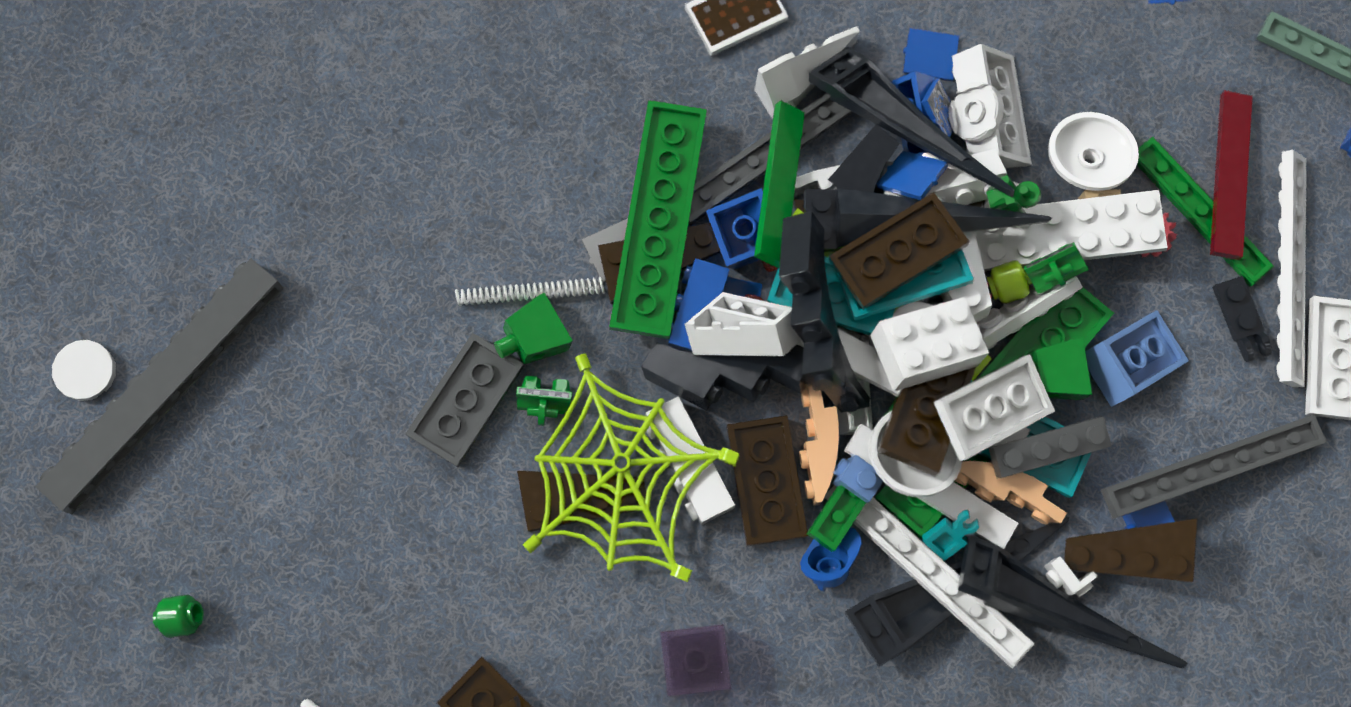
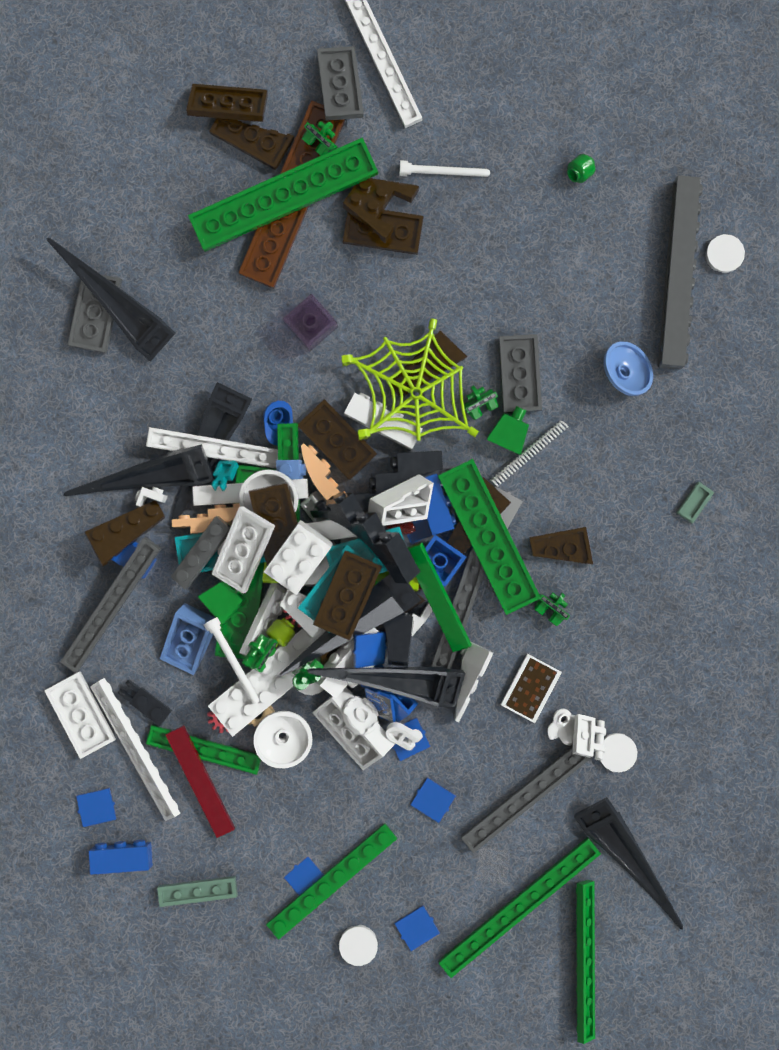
camera: 150 degrees right, 10 degrees up
(324, 305) = (628, 368): none -> medium blue dish
(368, 91) = (695, 502): none -> sand green tile
(570, 149) = (563, 545): none -> dark brown wing
(639, 71) = (558, 614): none -> green hips
(936, 57) = (397, 732): none -> white plate
(1096, 338) = (214, 627): none -> white piece

